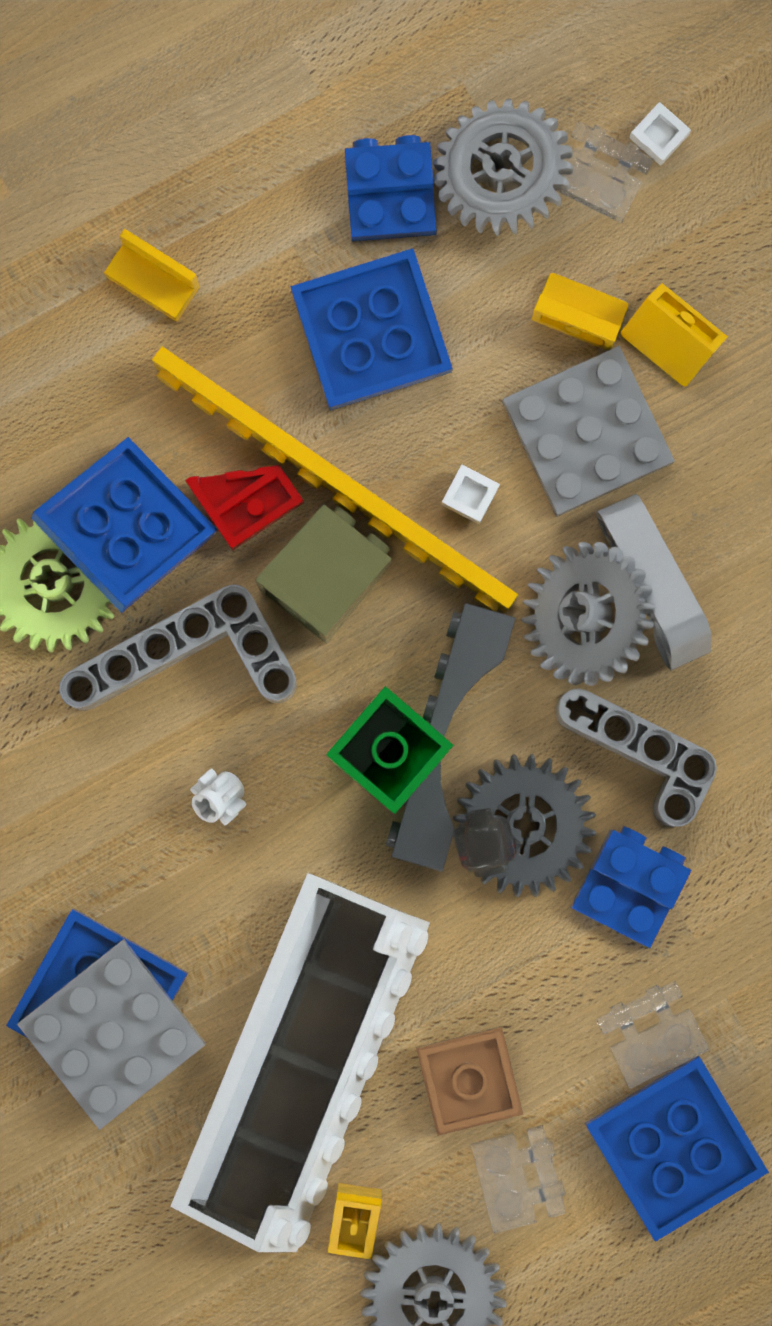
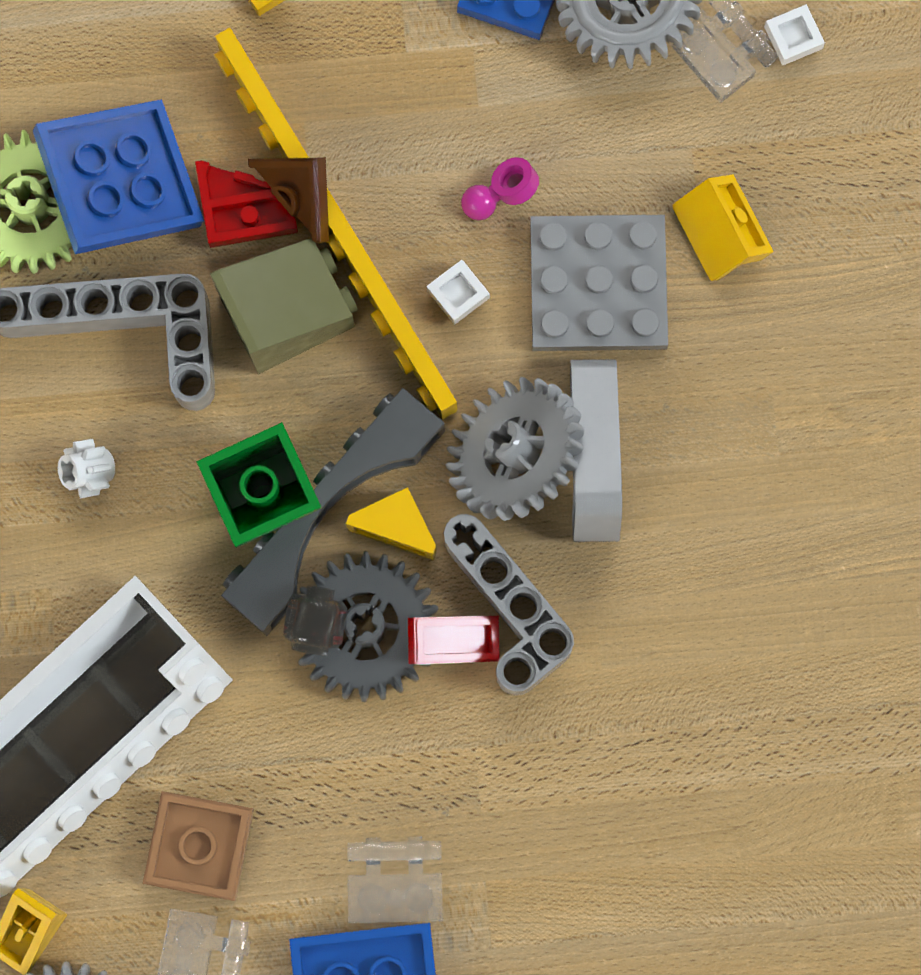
camera: 30 degrees right, 5 degrees down
(292, 464) = (300, 188): none -> reddish brown tile
(371, 329) = (435, 99): blue plate -> none
(452, 404) = (511, 182): none -> dark pink plate
(512, 723) = (395, 523): none -> yellow slope
(580, 311) = (642, 167): yellow panel -> none
(608, 803) = (453, 639): none -> tile
(631, 886) = (441, 730): blue plate -> none

